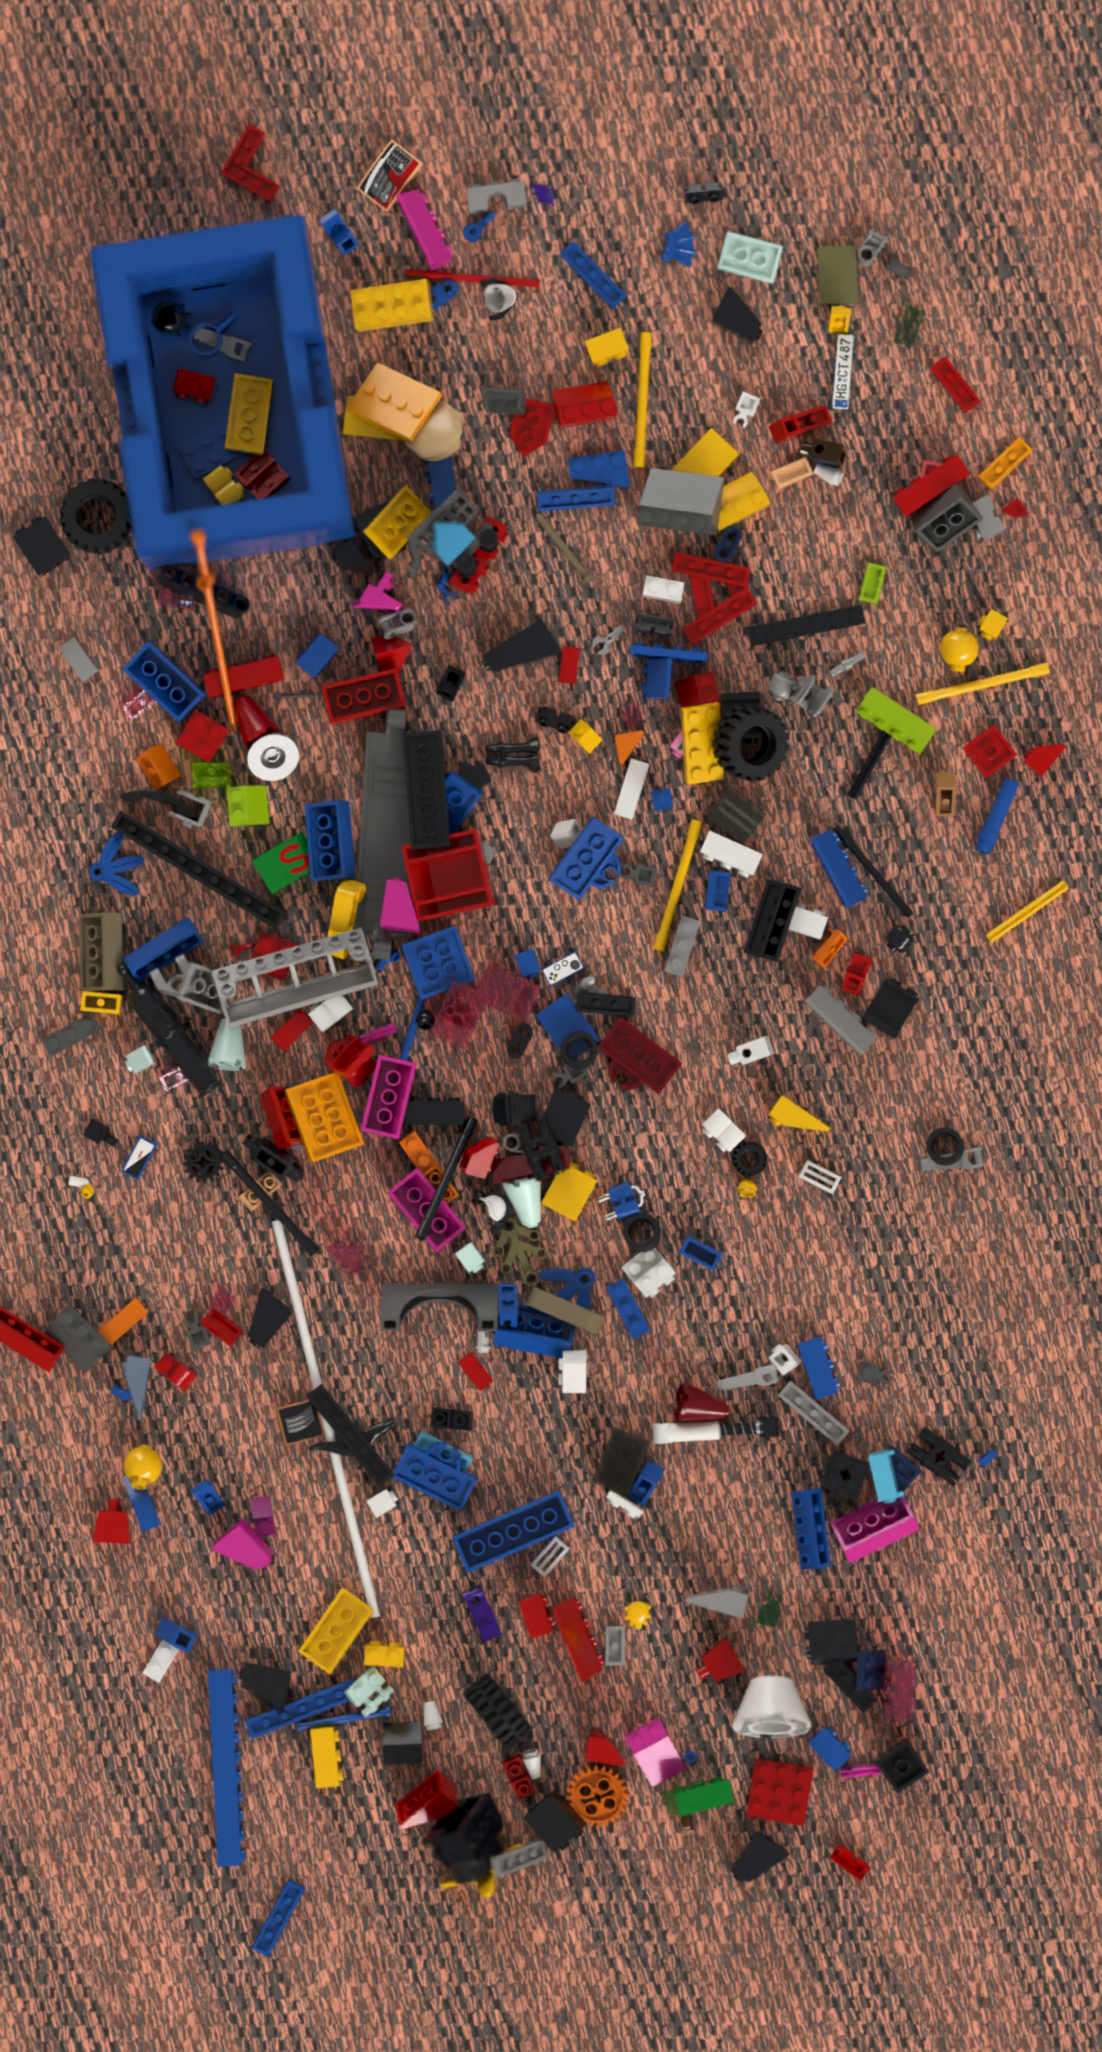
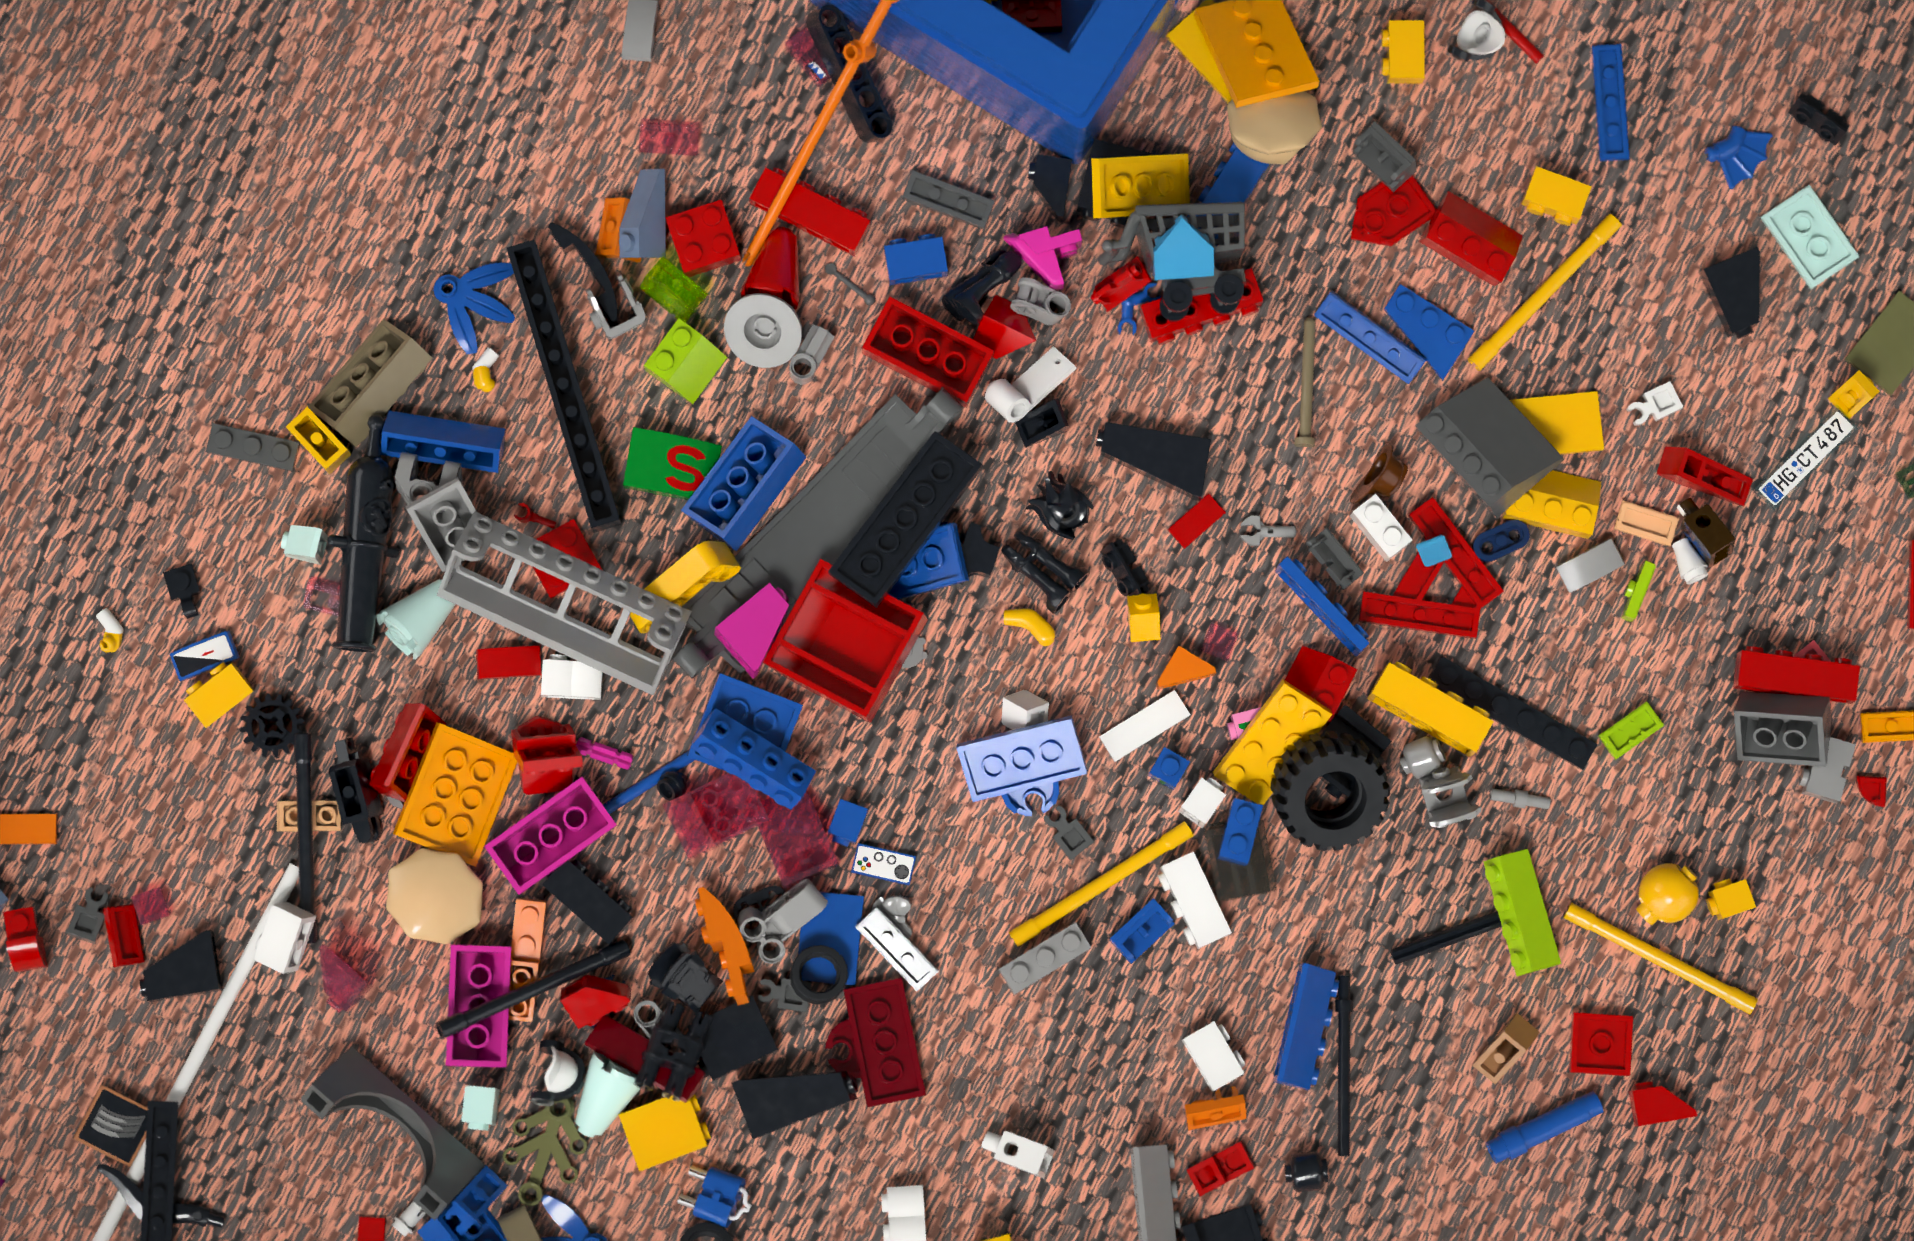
camera: 30 degrees right, 5 degrees down
(151, 898) = (481, 371): none -> arm
(163, 1170) = (218, 694): none -> yellow brick
(164, 681) = (715, 138): blue slope -> none
(166, 754) = (643, 224): none -> sand blue slope
(301, 1259) = (284, 937): none -> white brick
(306, 611) = (948, 200): none -> dark grey plate
(306, 747) = (811, 353): none -> light grey piece
(357, 1175) = (434, 896): none -> tan piece
(358, 654) = (965, 298): none -> black piece
(380, 963) = (678, 675): blue arm -> none
(429, 579) = (1121, 284): none -> red hinge
(429, 670) = (1021, 396): none -> white door
(455, 973) = (753, 759): none -> blue brick
(469, 339) = (1404, 52): none -> yellow brick
(496, 716) = (1061, 506): none -> black hair
(515, 1071) = (724, 935): none -> orange slope
(532, 785) = (1031, 621): none -> yellow arm
(537, 1039) = (781, 919): none -> light grey piece
(616, 1124) = (788, 1099): none -> black slope
(642, 563) = (1383, 477): none -> reddish brown piece
(658, 679) = (1285, 625): blue slope -> none
(693, 802) = (1203, 801): none -> white brick
(699, 578) = (1434, 550): none -> dark azure slope
(724, 801) = (1240, 831): none -> blue brick
(765, 659) = (1430, 709): none -> yellow brick
(772, 920) = (1176, 1020): black slope -> none
(782, 518) = (1590, 565): none -> light grey slope
(815, 510) = (1636, 591): none -> lime plate

